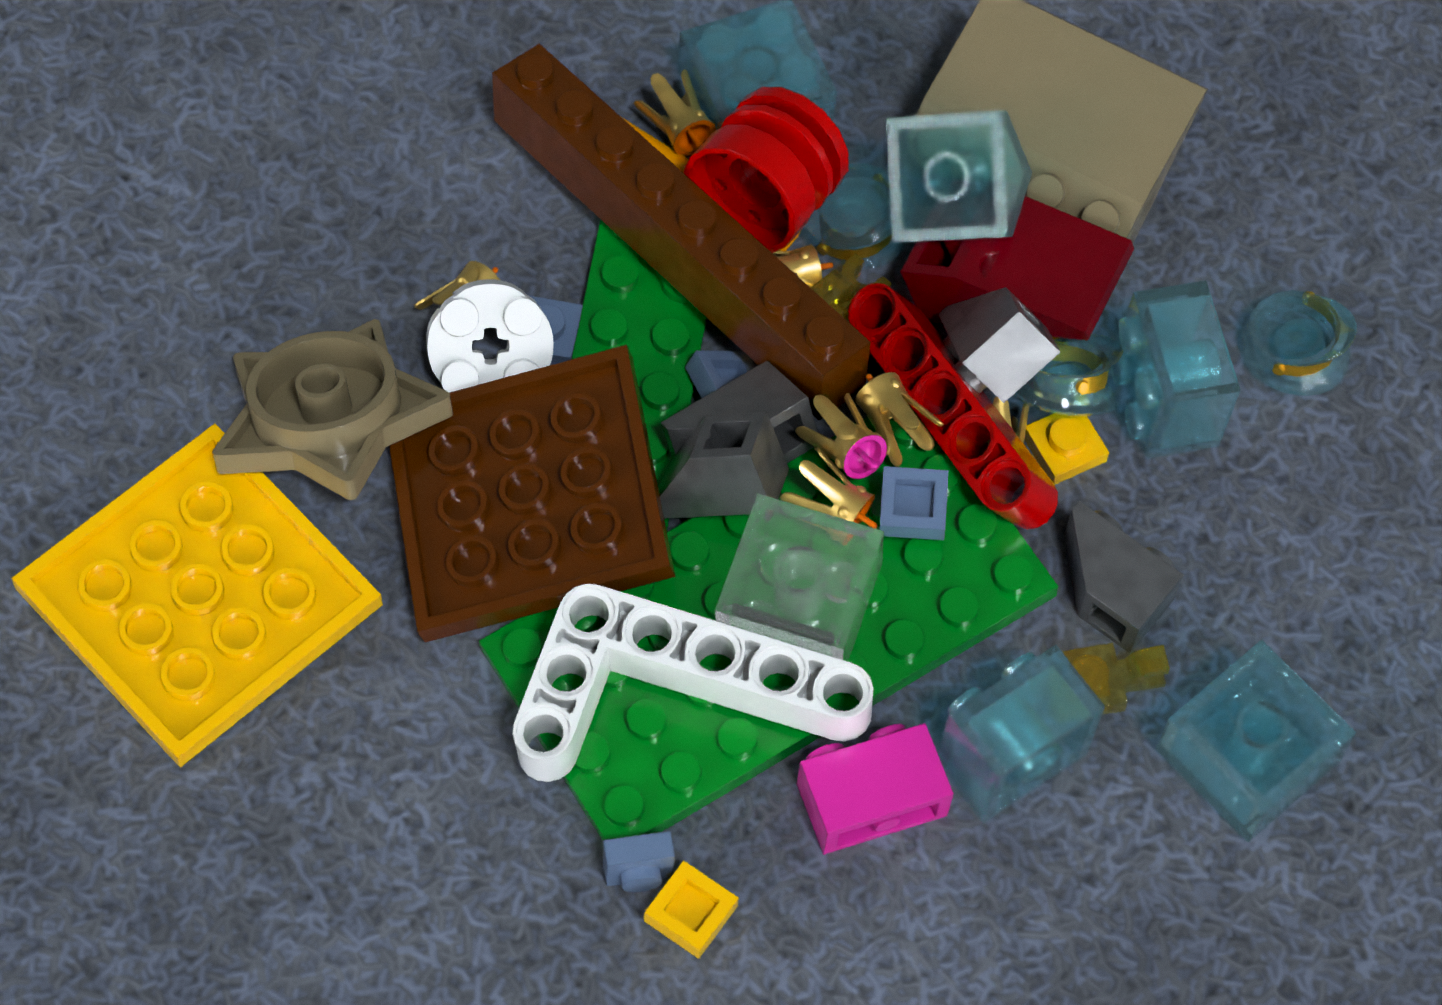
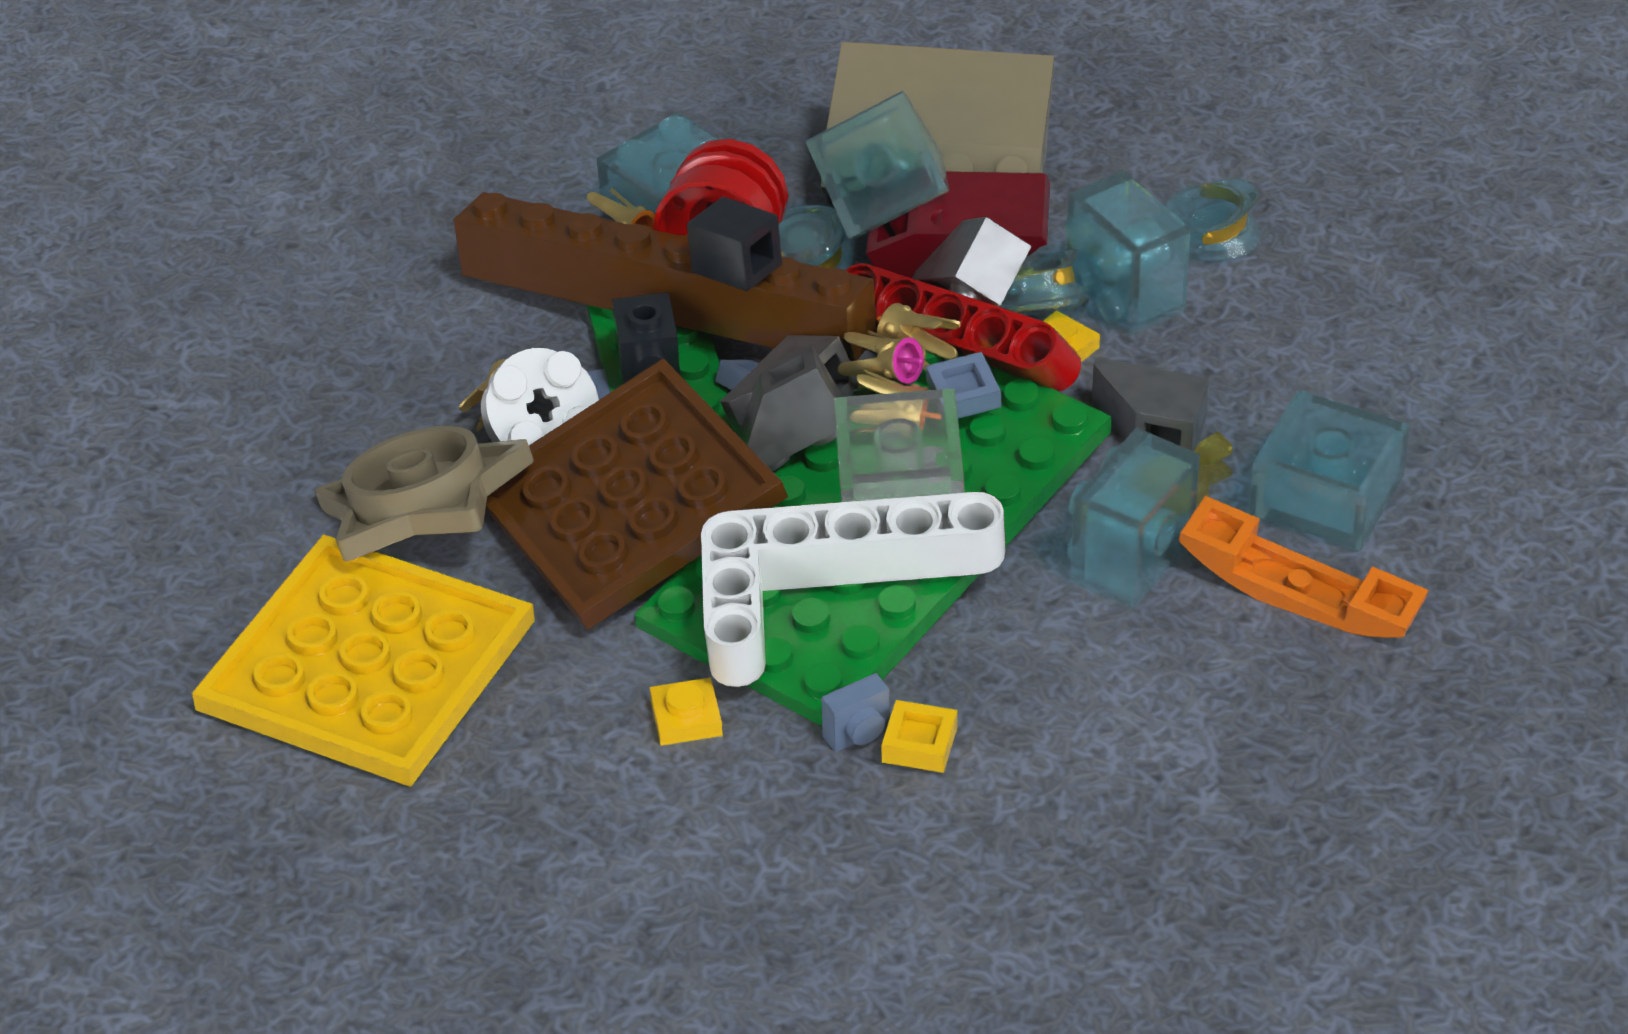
camera: 15 degrees left, 20 degrees down
(480, 780) = (686, 711): none -> yellow plate
(626, 301) = (644, 333): none -> black brick
(737, 254) = (734, 243): none -> black brick
(873, 786) = (1031, 603): dark pink brick -> none
(1162, 860) = (1270, 573): none -> orange slope

